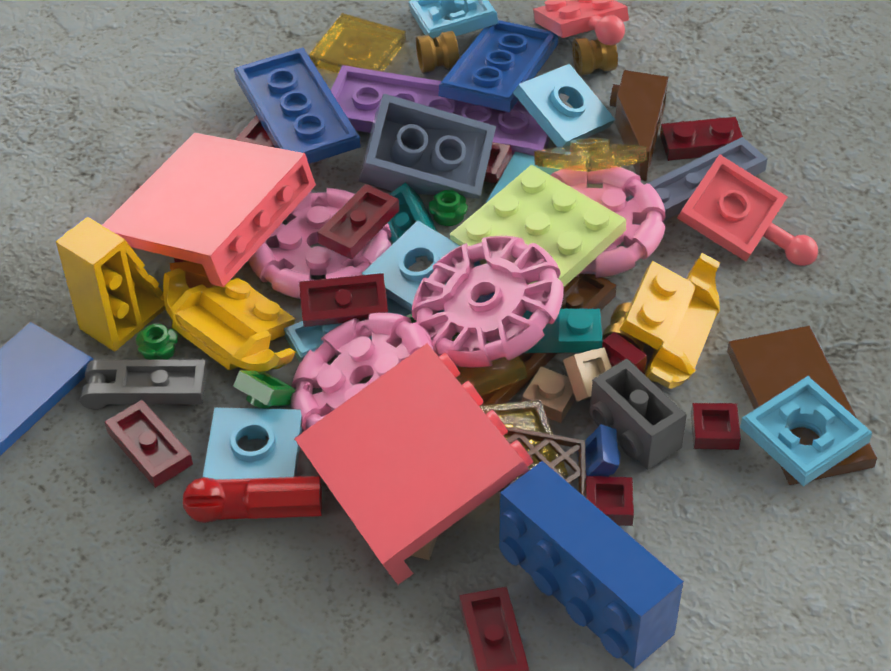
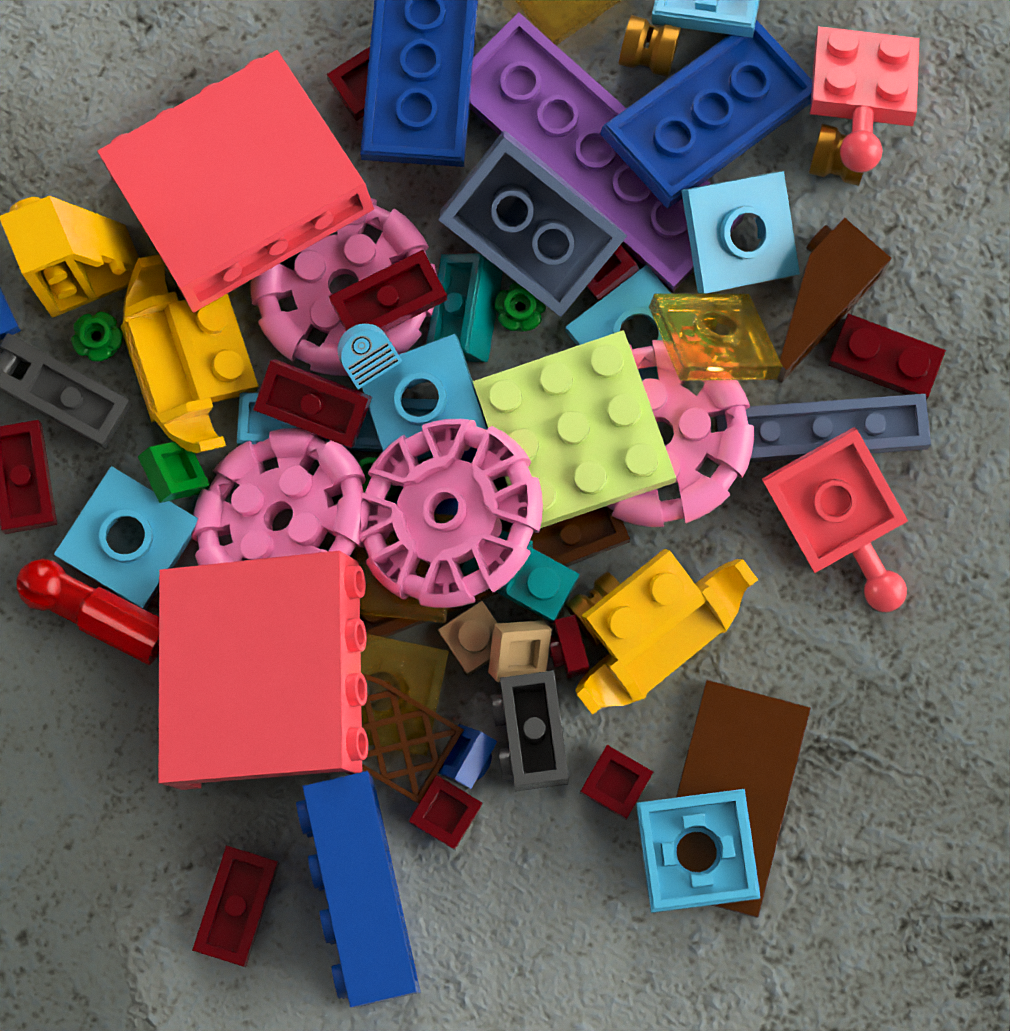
camera: 30 degrees right, 30 degrees up
(365, 249) = (366, 353): none -> medium azure tile

